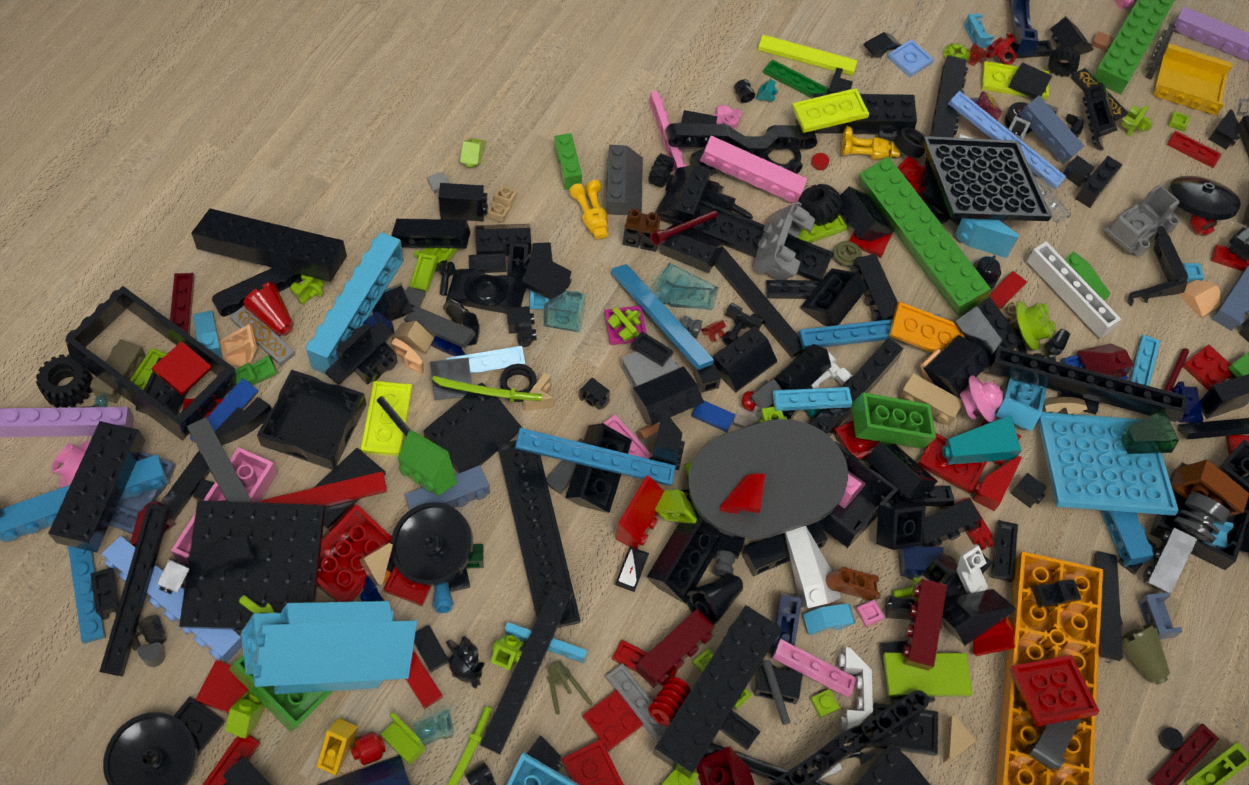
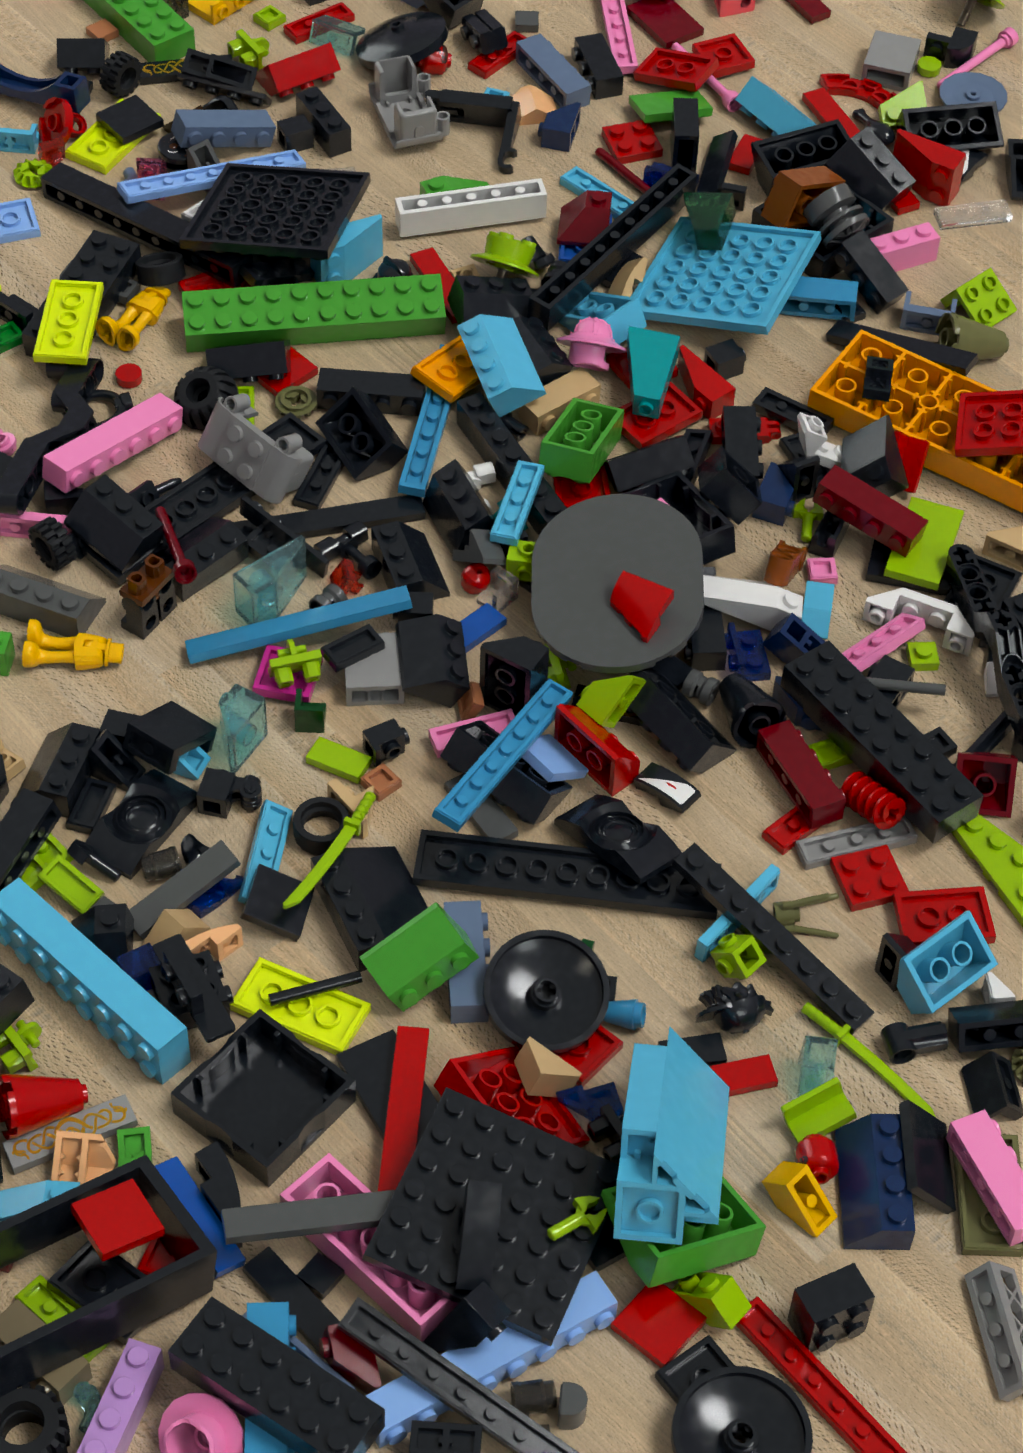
camera: 65 degrees left, 10 degrees down
(568, 404) = (383, 780): none -> nougat tile
(574, 375) = (338, 759): none -> lime tile
(574, 551) = (619, 837): none -> black slope
(600, 346) = (309, 716): none -> dark green panel
(618, 491) = (553, 760): none -> light blue tile
(721, 277) = (273, 534): none -> black bracket
(767, 585) = (747, 654): none -> clear blue bracket
(896, 374) = (515, 426): none -> black pin
(931, 349) = (501, 362): none -> medium azure slope
(1136, 153) = (299, 71): none -> red slope
(1187, 159) = (338, 32): none -> clear light blue panel
(1190, 319) = (560, 127): none -> dark blue slope
(1194, 448) = (739, 194): none -> black tile
(1198, 652) = (983, 299): none -> lime bracket
(1213, 577) = (909, 246): none -> bright pink brick

